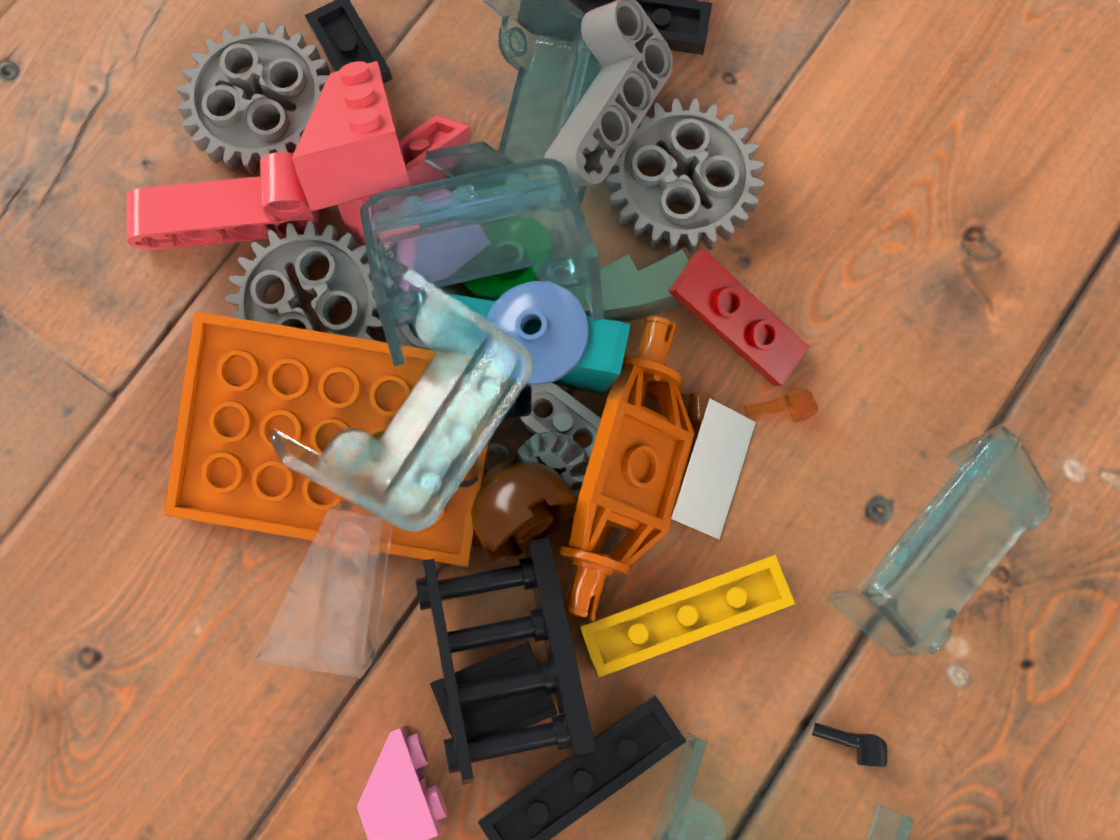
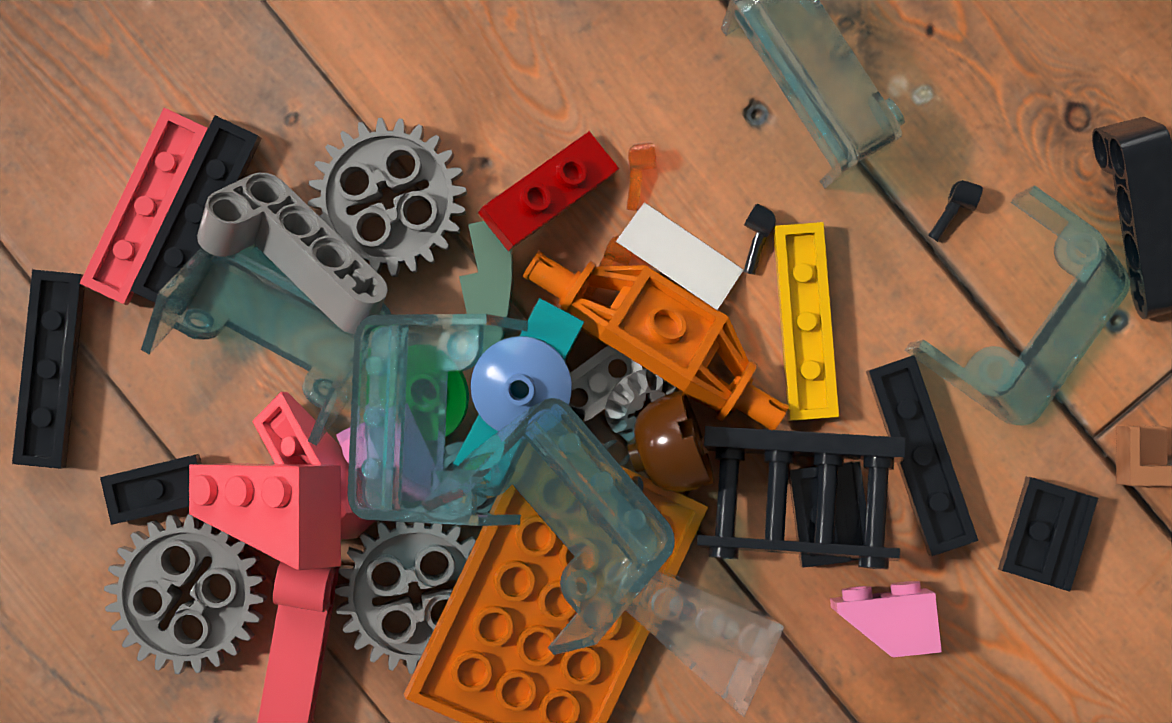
camera: 75 degrees left, 10 degrees up
(774, 542) = (762, 222): none -> black hand

